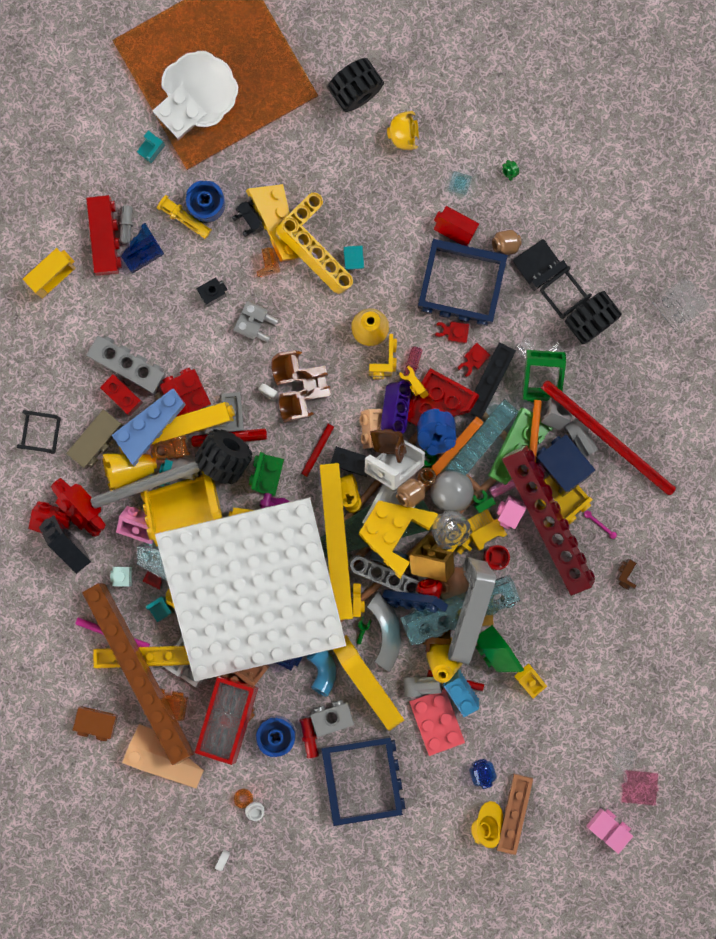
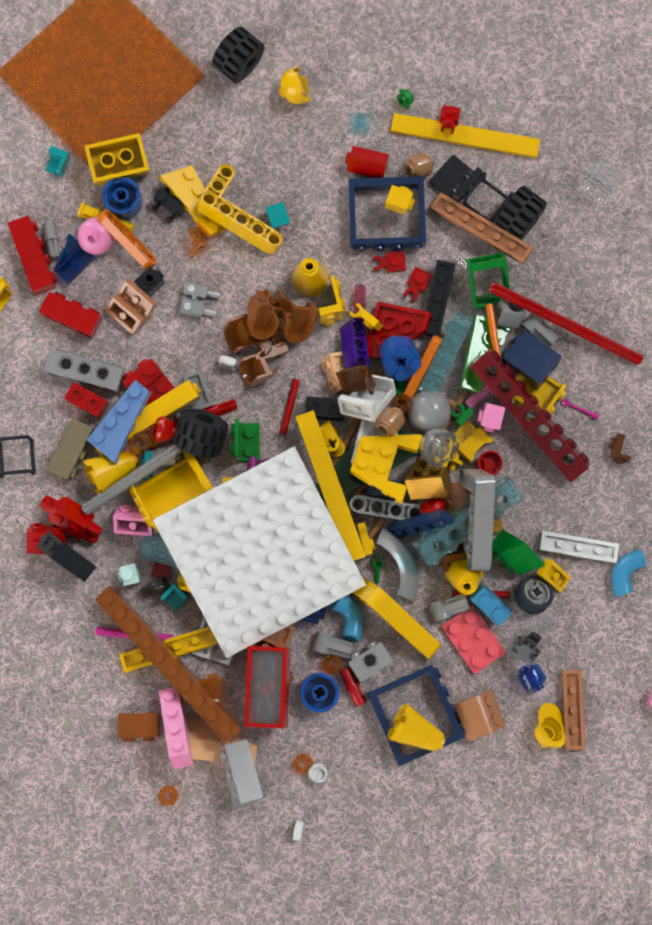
camera: 10 degrees left, 5 degrees down
(107, 802) = (164, 800): none -> clear orange plate
(127, 304) = (71, 314): none -> red brick
(129, 737) = (176, 728): none -> bright pink brick
(143, 594) = (157, 586): none -> clear smoke cone
(171, 232) = (95, 237): none -> bright pink cylinder
(181, 795) = (241, 774): none -> light grey wedge
(187, 313) = (131, 307): none -> nougat brick
(188, 444) = (163, 429): none -> red cone
(198, 92) = (90, 99): white animal -> none
(200, 244) = (127, 239): none -> orange beam
(209, 161) = (116, 159): none -> yellow brick
(293, 715) = (328, 667): none -> clear orange plate
(297, 692) = (328, 645): none -> light grey piece
(313, 358) = (264, 314): none -> dark orange piece
(357, 797) = (415, 730): none -> yellow cone
(423, 797) = (479, 715): none -> nougat brick
(478, 273) = (400, 199): none -> yellow brick
(484, 745) = (528, 647): none -> black piece
(497, 718) = (530, 622): none -> clear plate
(498, 699) = (526, 598): none -> wheel
(549, 201) = (449, 117): none -> red plate
(551, 322) = (482, 228): none -> nougat plate
(560, 222) = (466, 136): none -> yellow tile
(562, 659) = (579, 547): none -> white plate
(598, 693) = (623, 569): none -> dark azure cylinder

